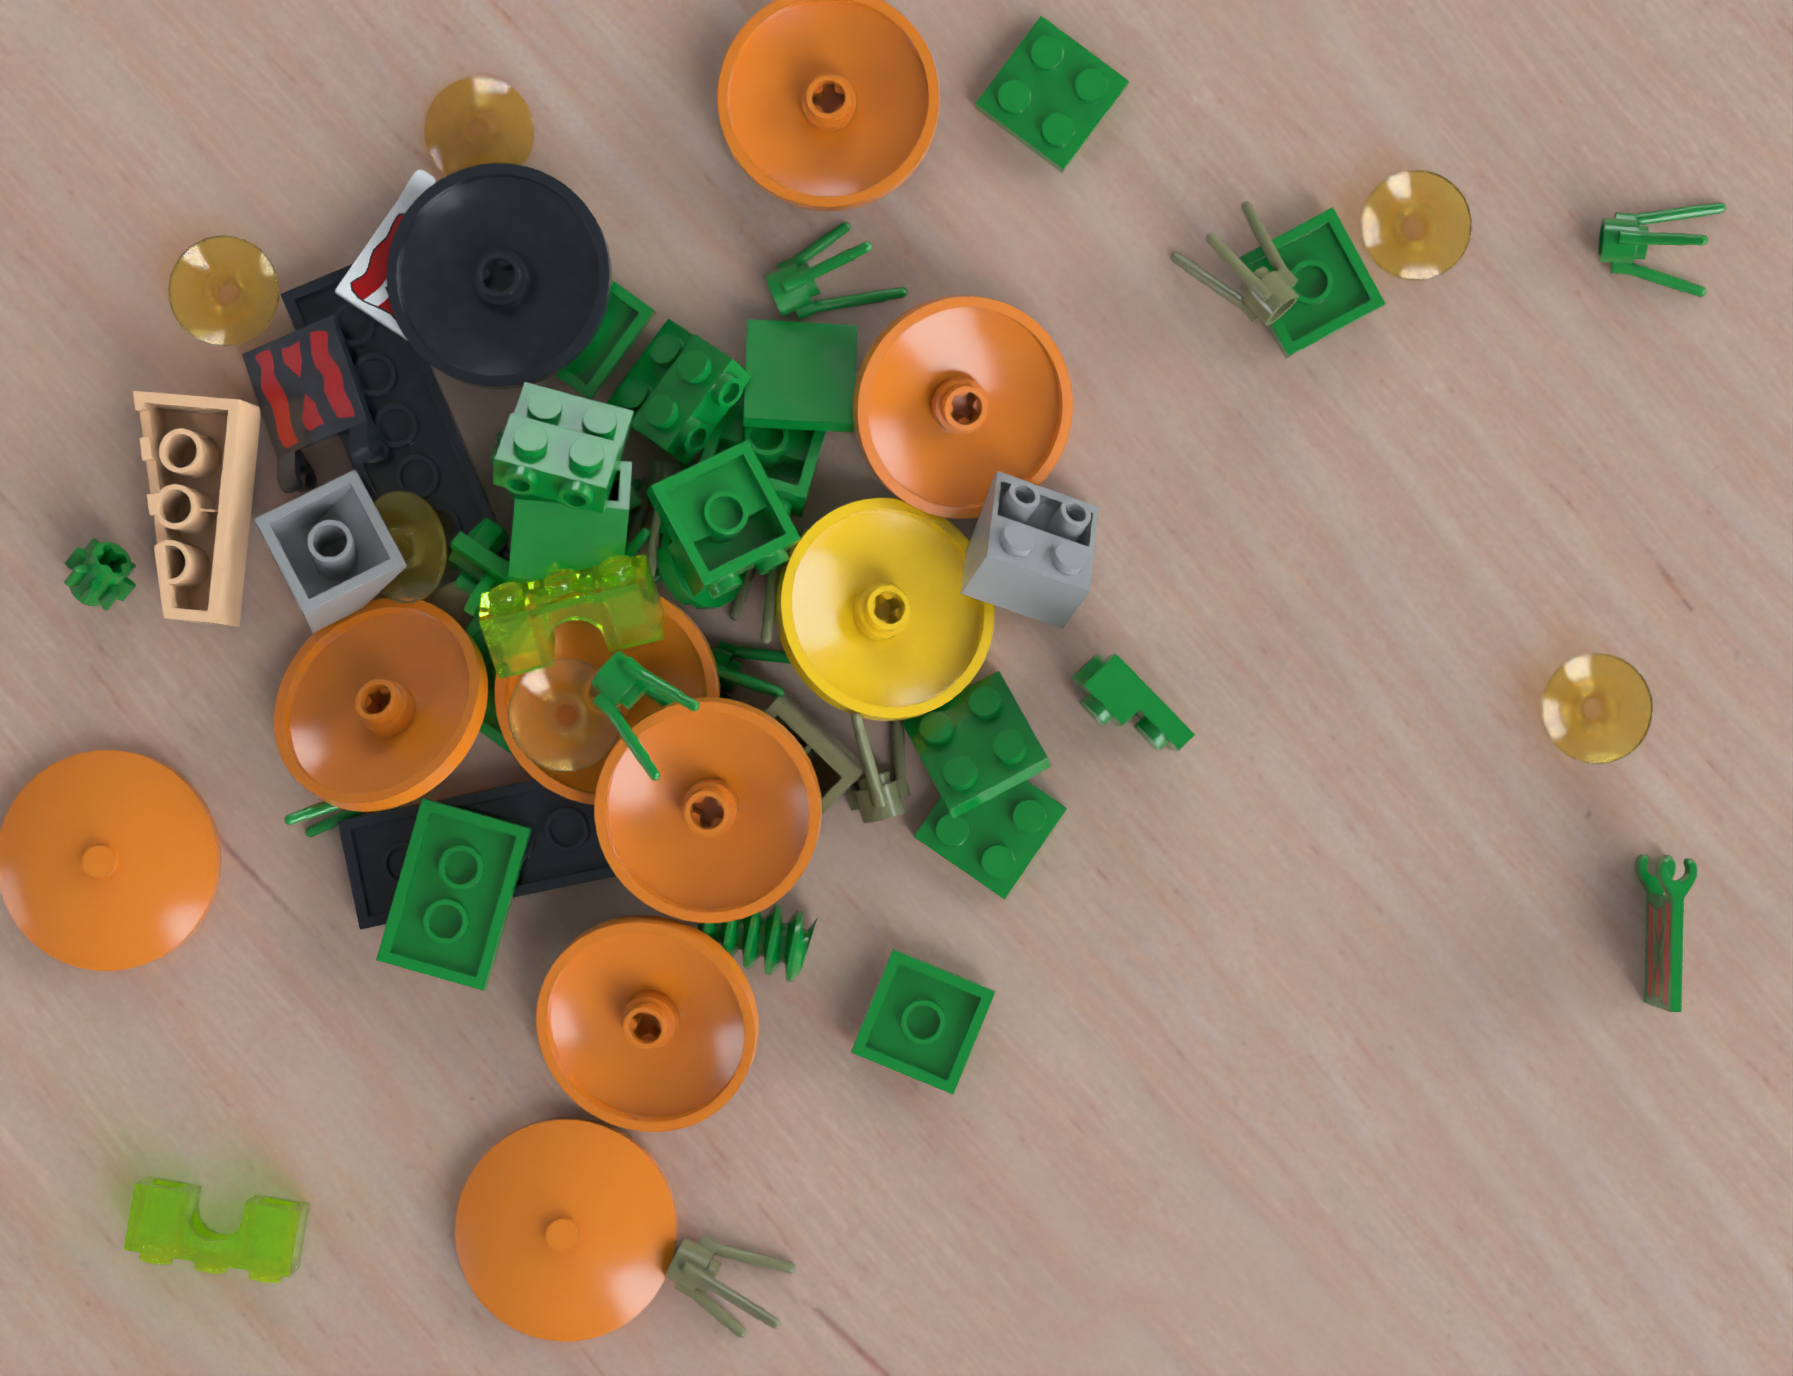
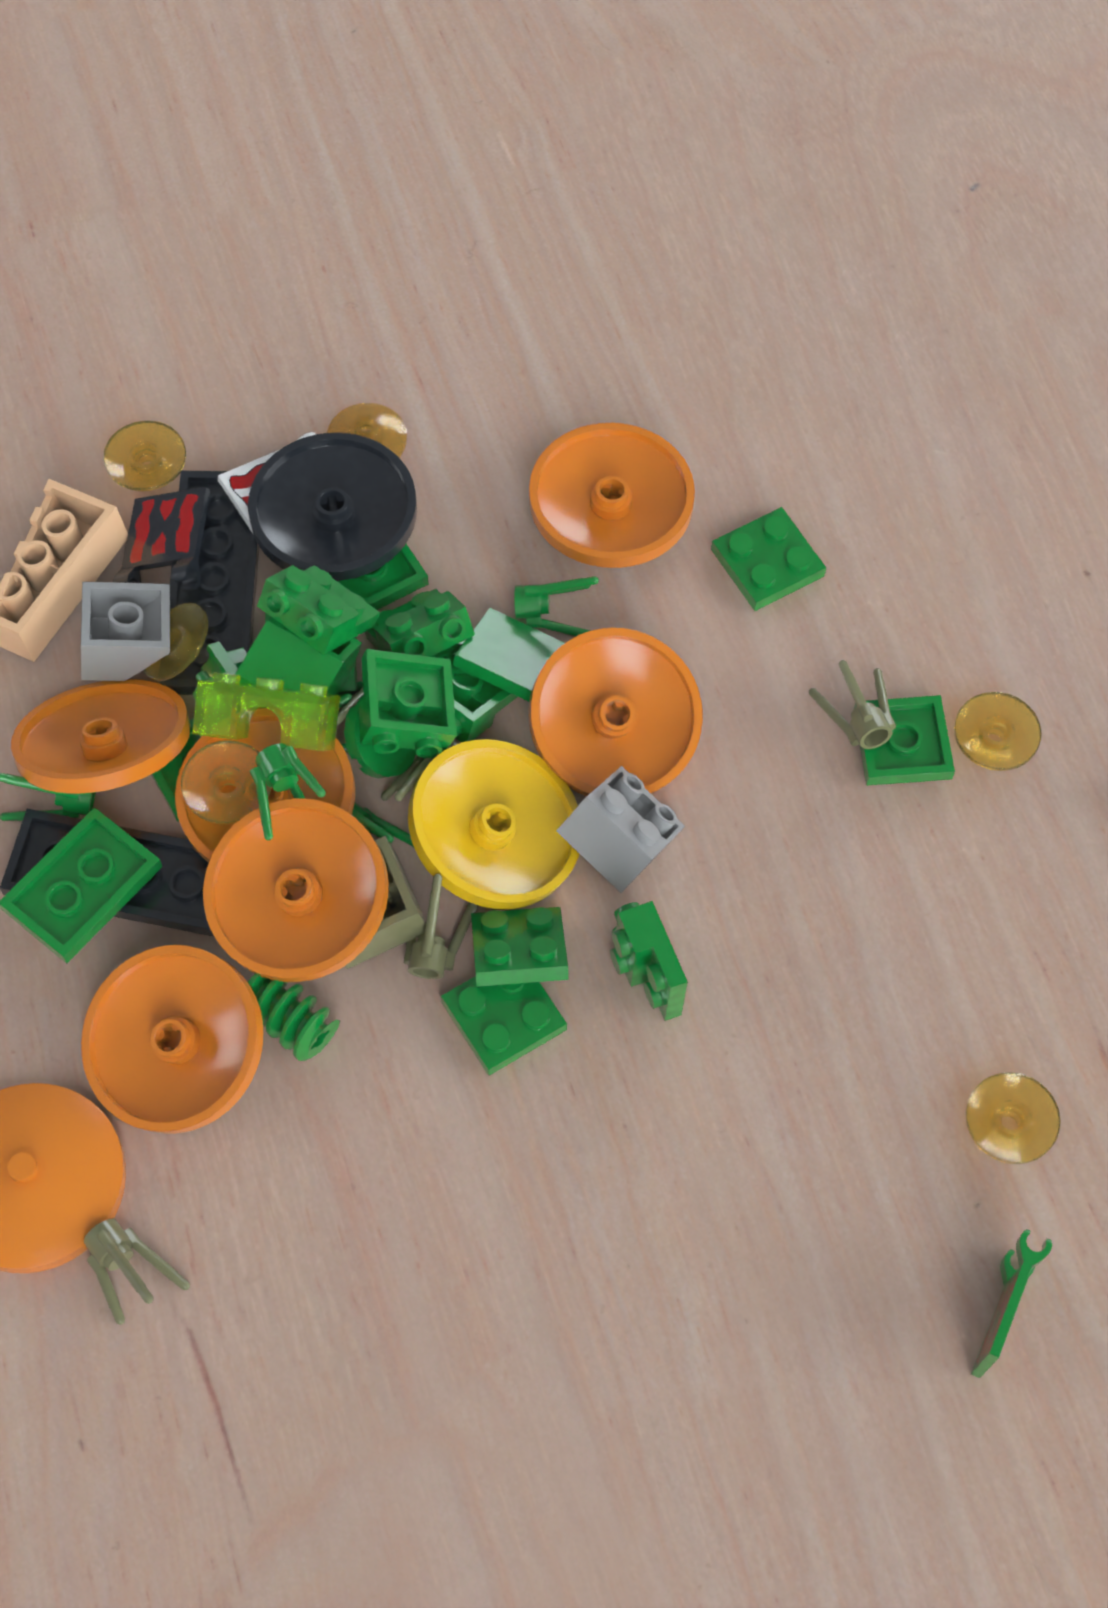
camera: 20 degrees right, 25 degrees down
(923, 1021) = (382, 1134): green plate -> none

